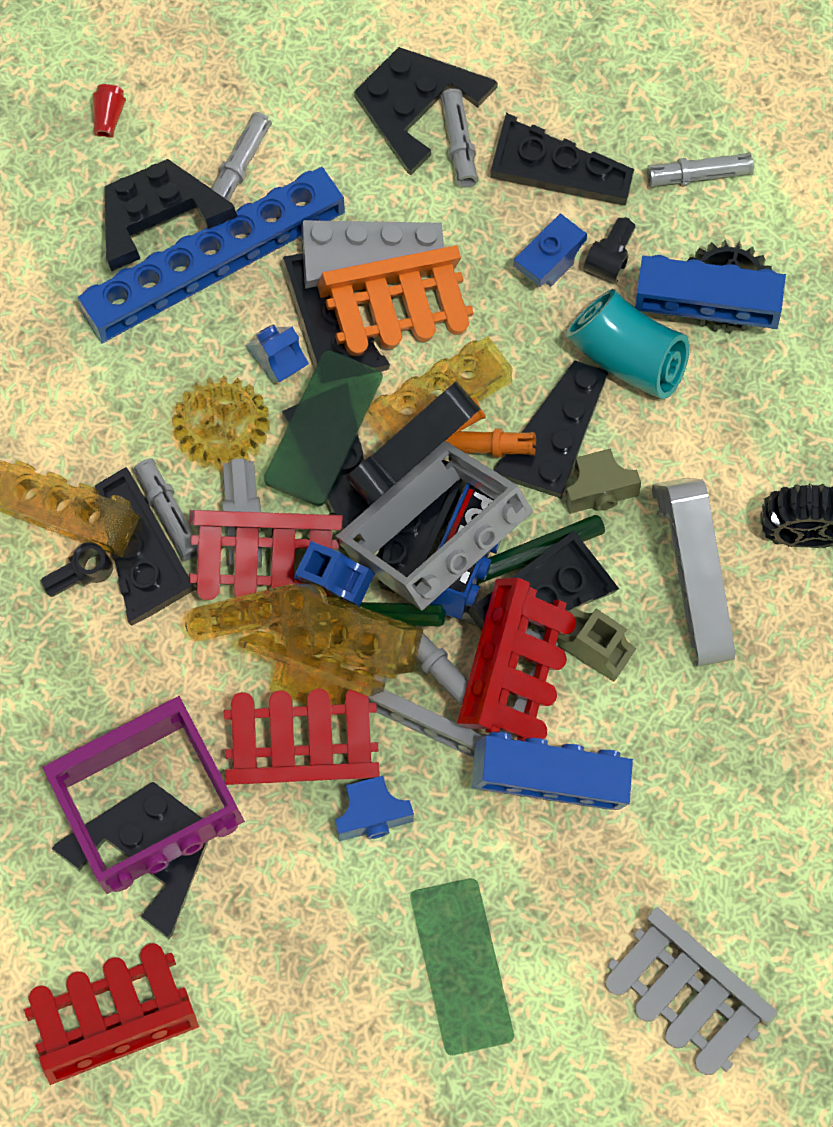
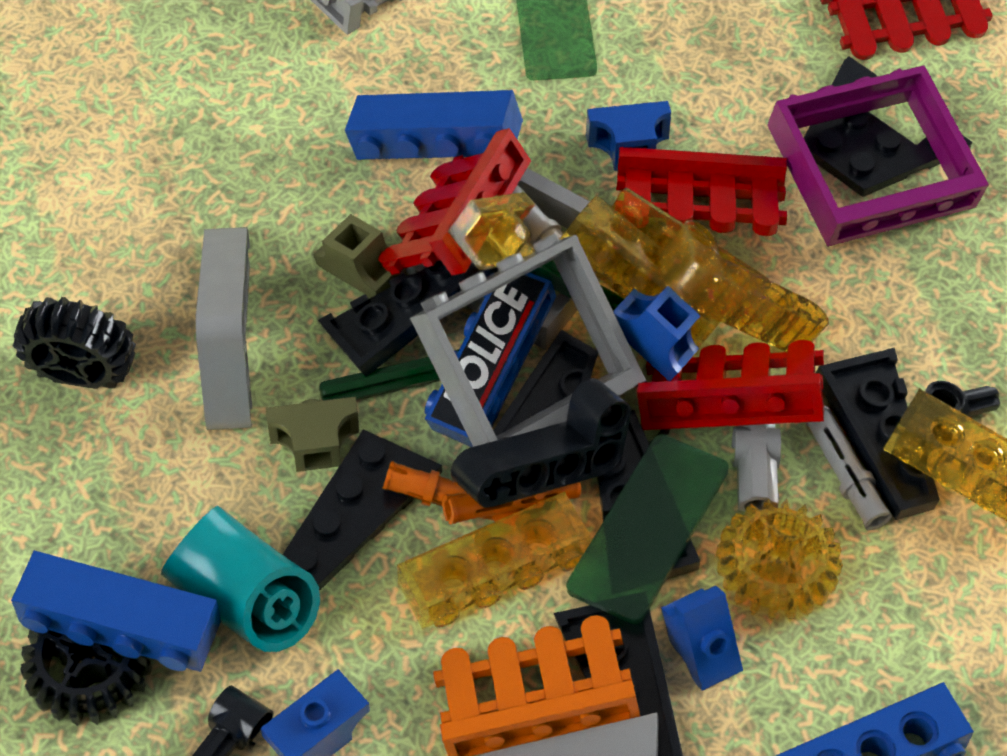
camera: 175 degrees left, 10 degrees down
(474, 605) = (493, 229): none -> clear yellow panel

